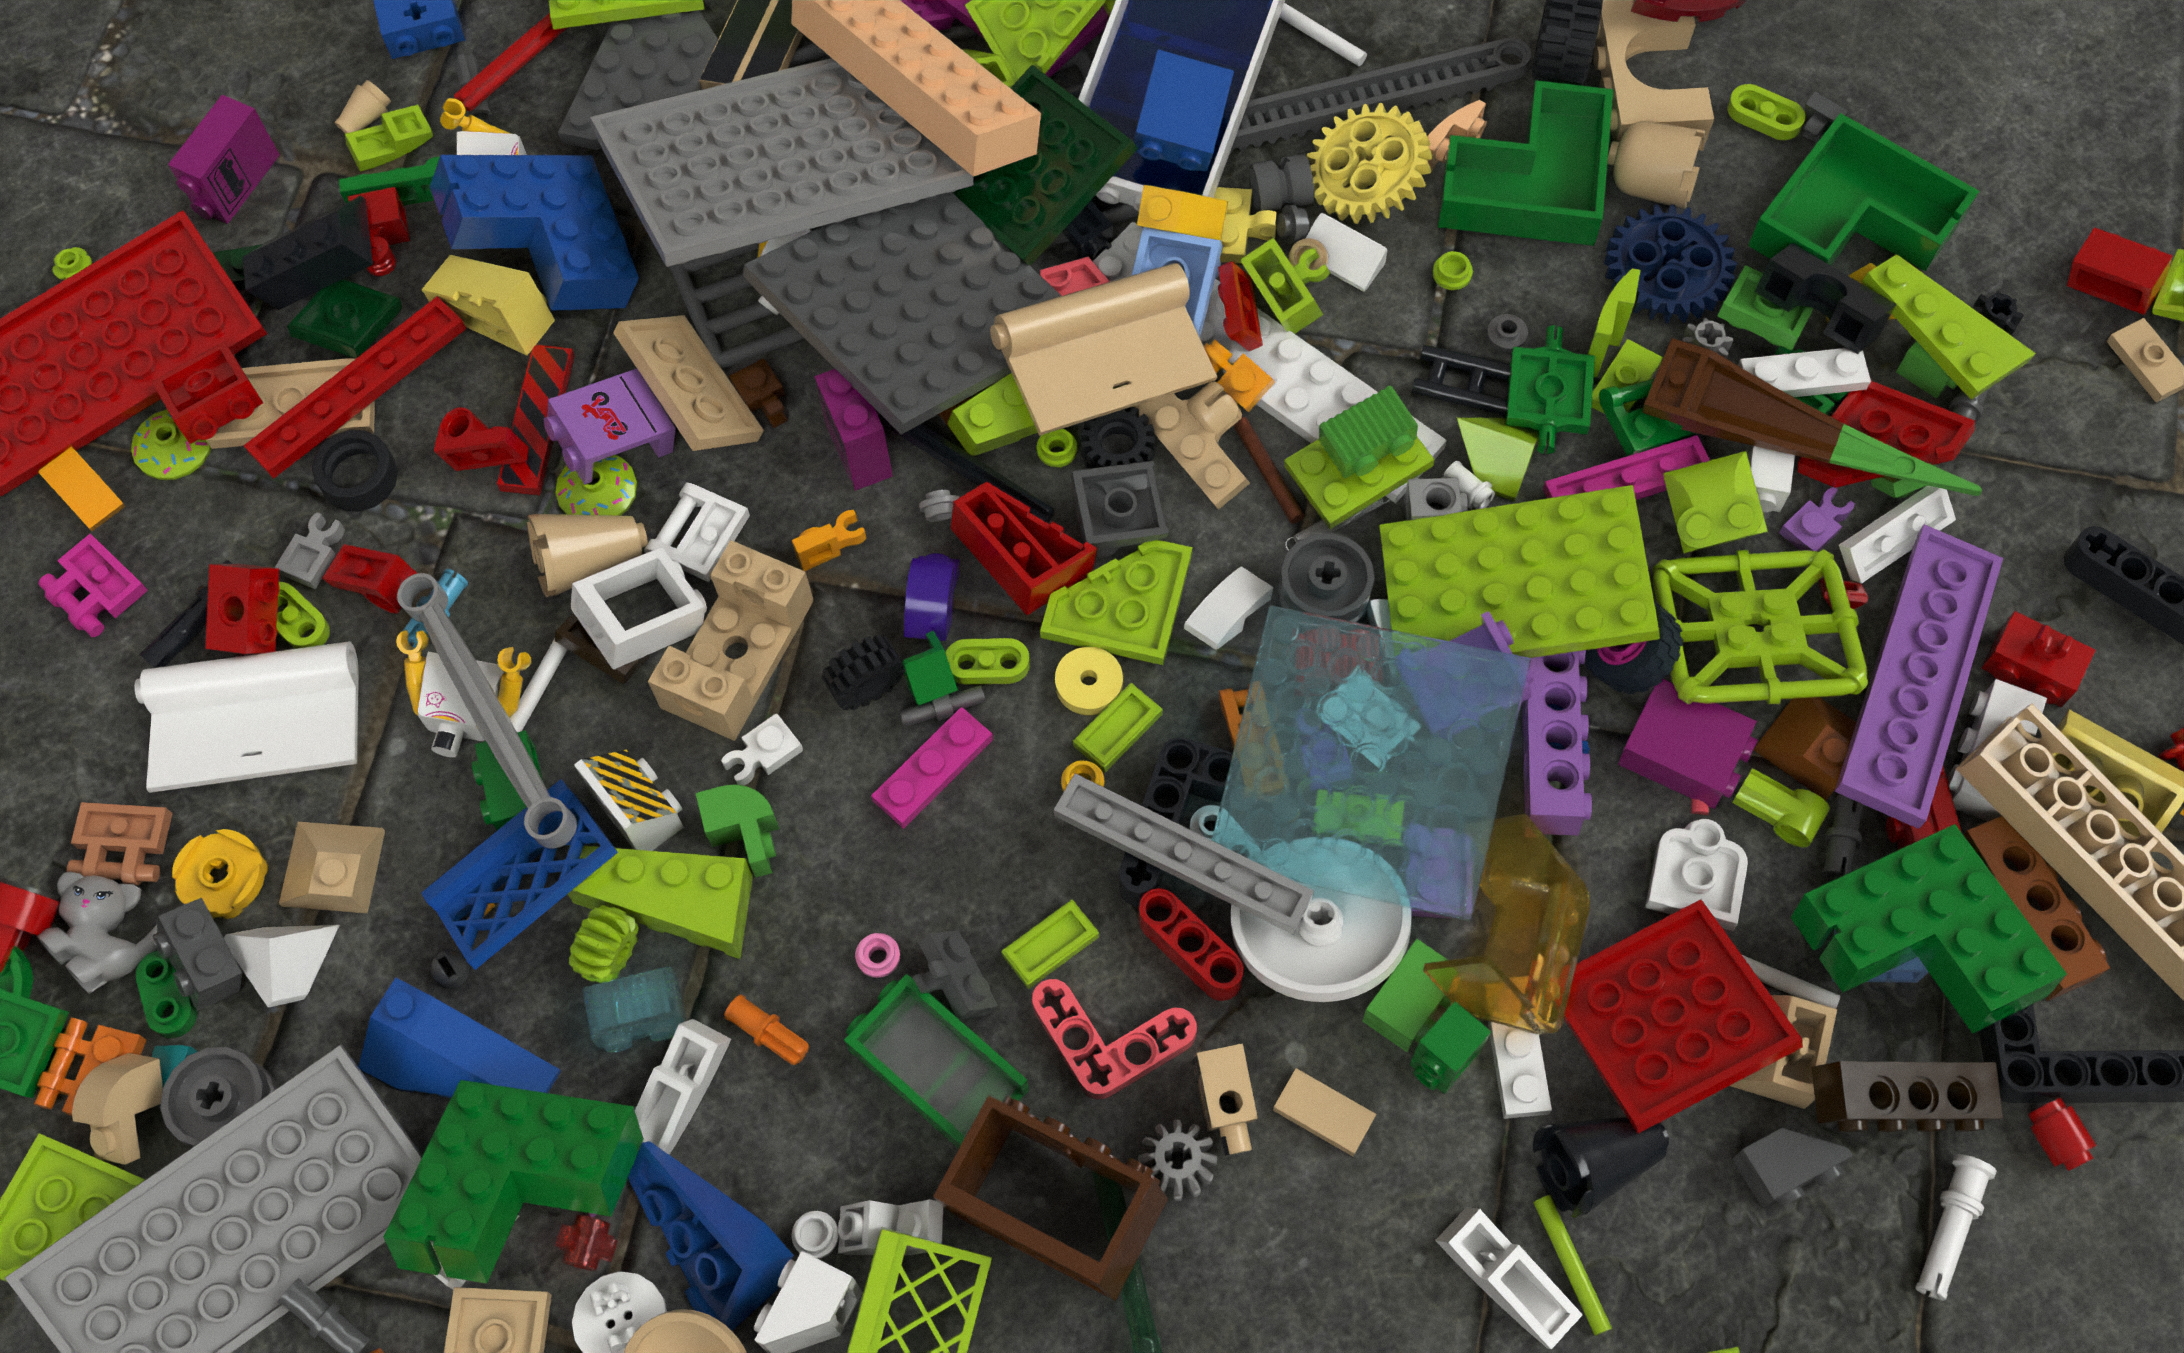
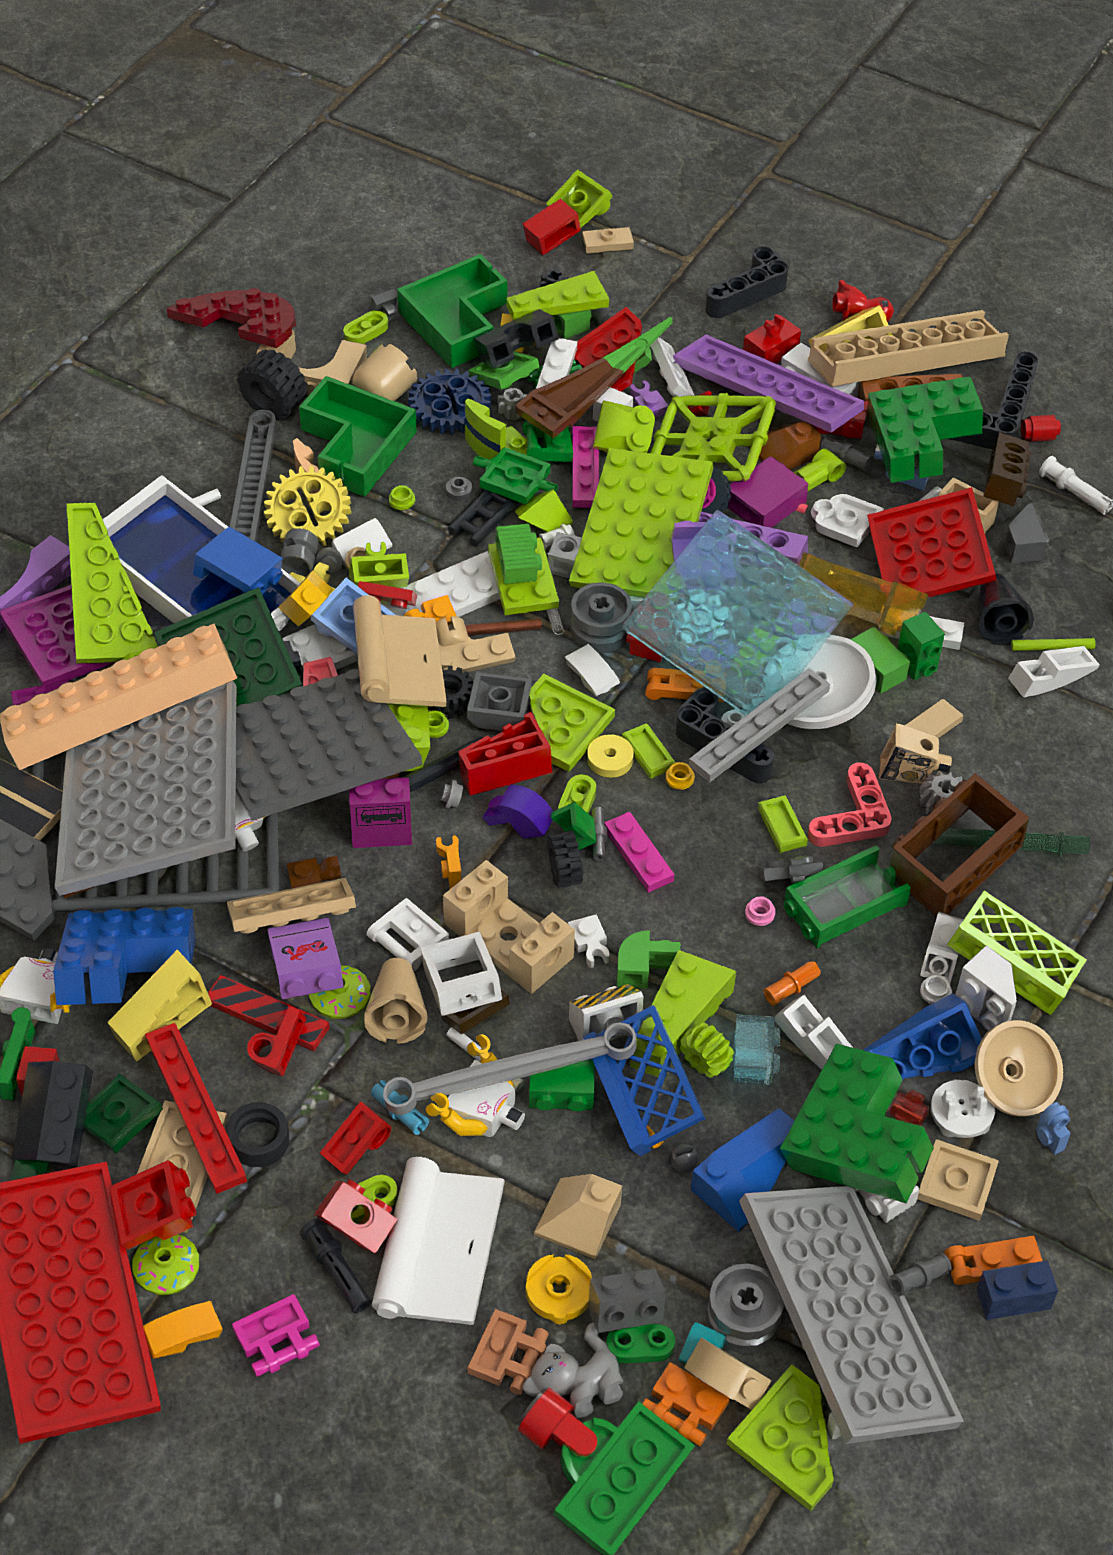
camera: 75 degrees left, 15 degrees down
(281, 959) = (639, 1253): white slope -> none
(310, 556) = (315, 1179): light grey plate -> none
(1184, 924) = (810, 751): red beam -> none

